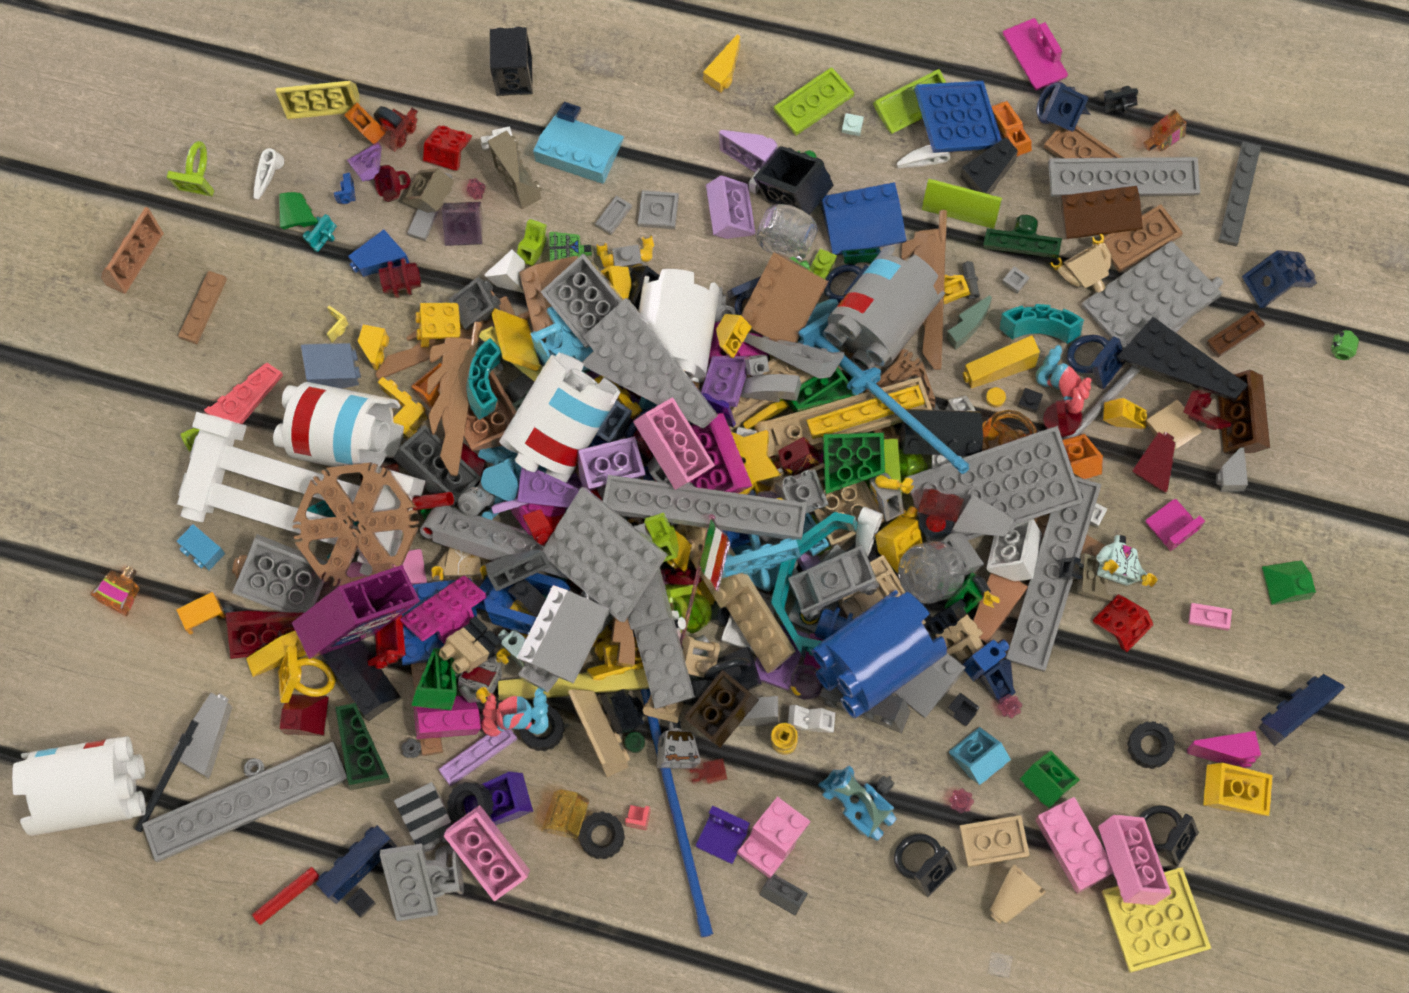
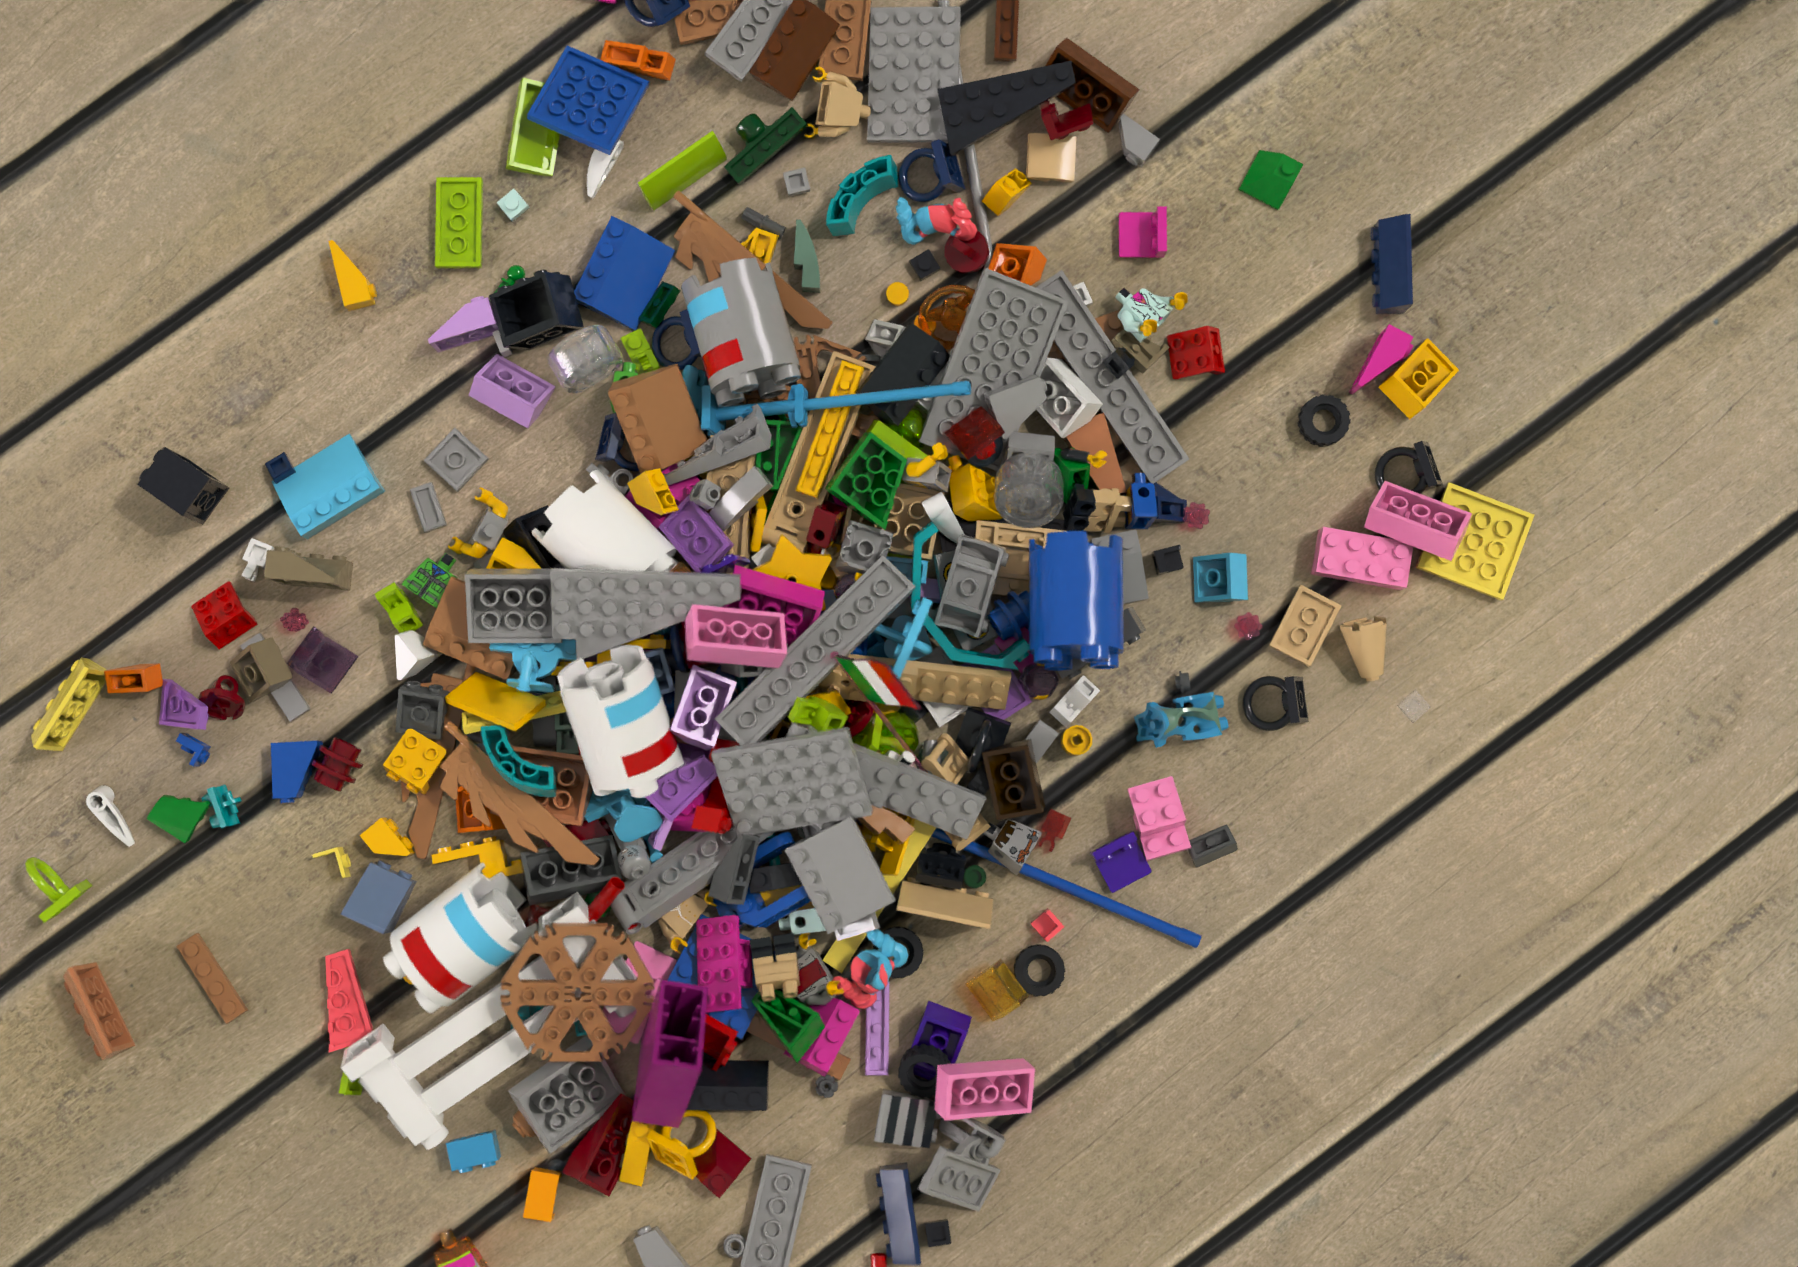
camera: 60 degrees left, 15 degrees up
(360, 755) = (798, 1138): dark green wedge -> none
(396, 125) = (162, 649): clear red plate -> none
(989, 167) = (664, 115): black wedge -> none
(1002, 363) = (871, 262): yellow slope -> none
(1049, 779) = (1288, 533): green slope -> none
(1157, 462) = (1076, 201): dark red slope -> none
(1210, 616) = (1250, 273): bright pink plate -> none

